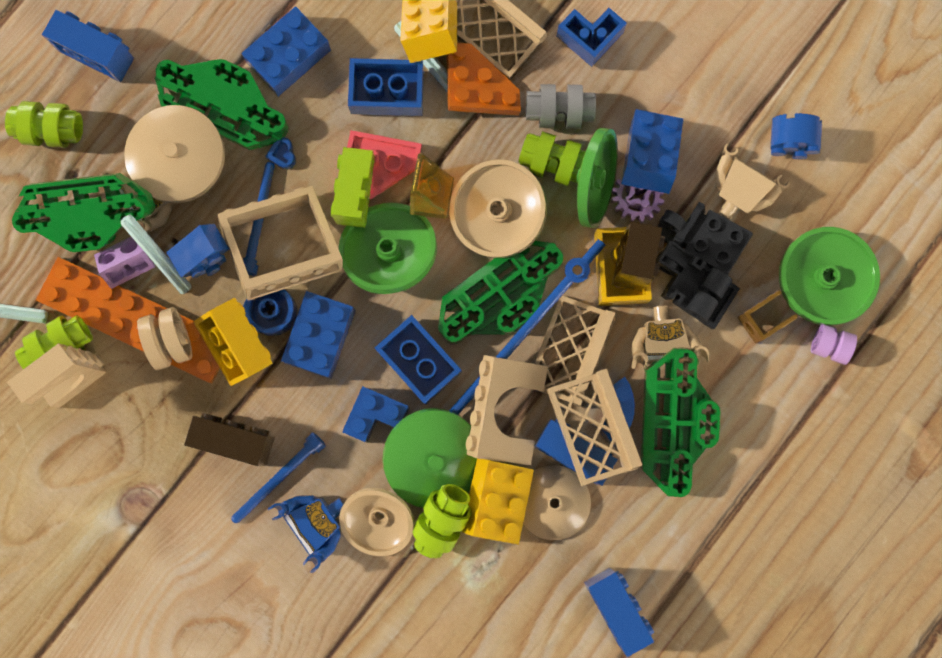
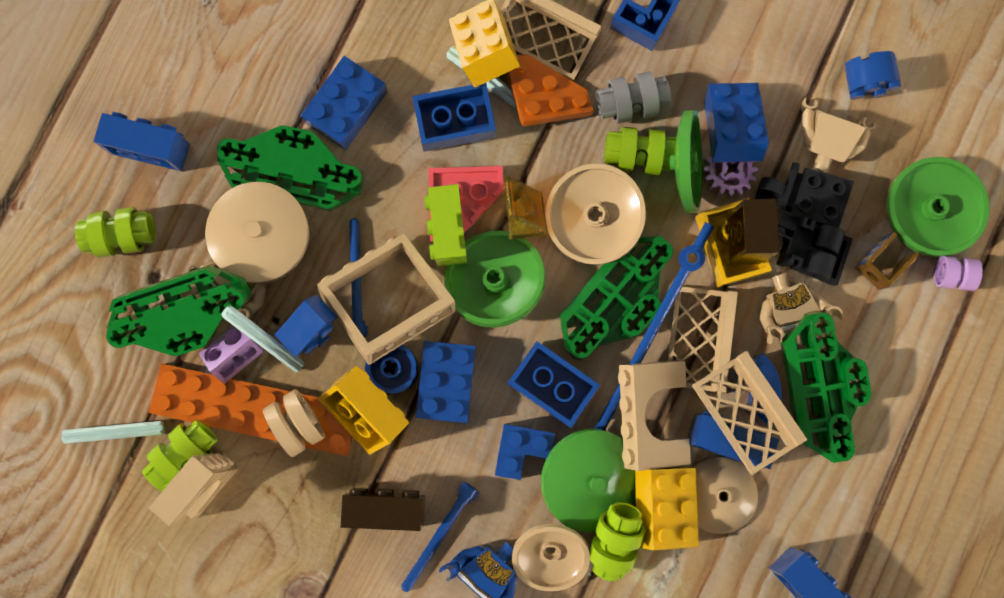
camera: 20 degrees left, 0 degrees up
(282, 154) = (363, 207): blue tile -> none

